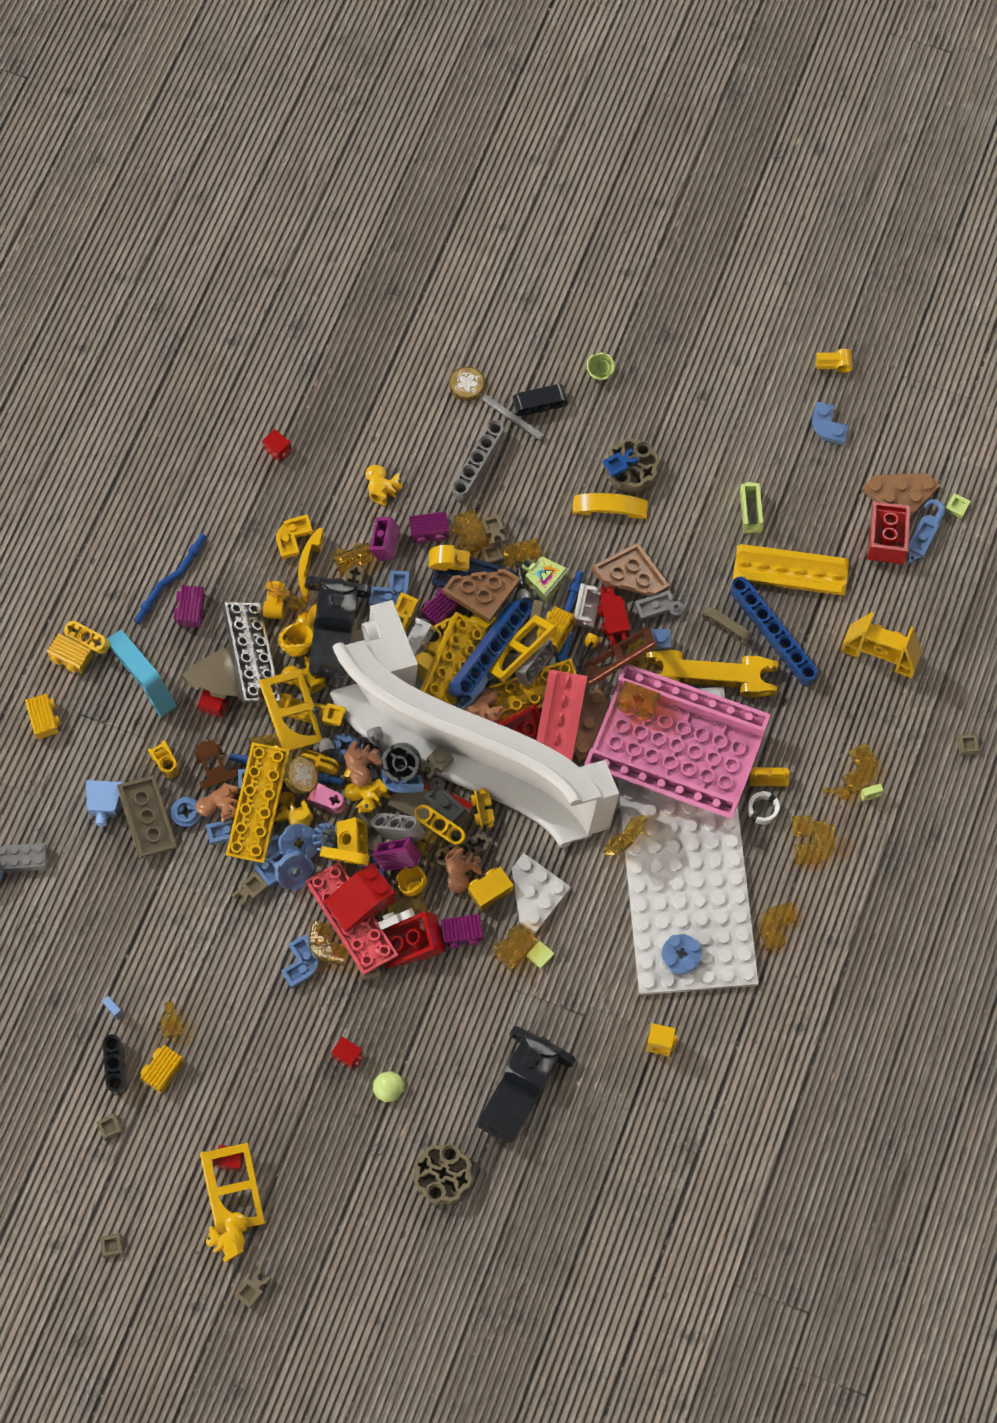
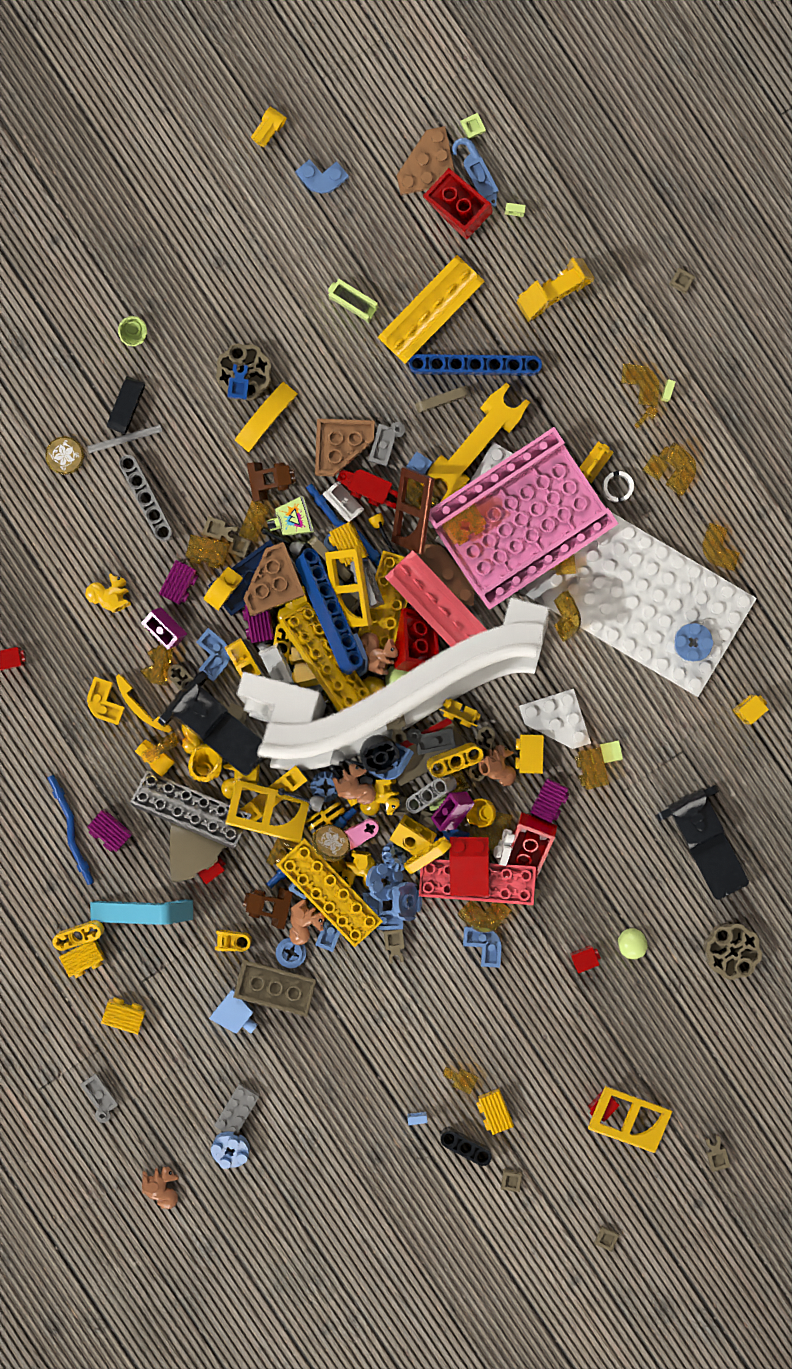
camera: 55 degrees left, 20 degrees up
(231, 1241) = (670, 1146): yellow animal -> none
(570, 546) = (283, 477): none -> reddish brown tile
(664, 805) = (566, 567): none -> clear yellow plate
(919, 578) = (515, 209): none -> yellowish green tile

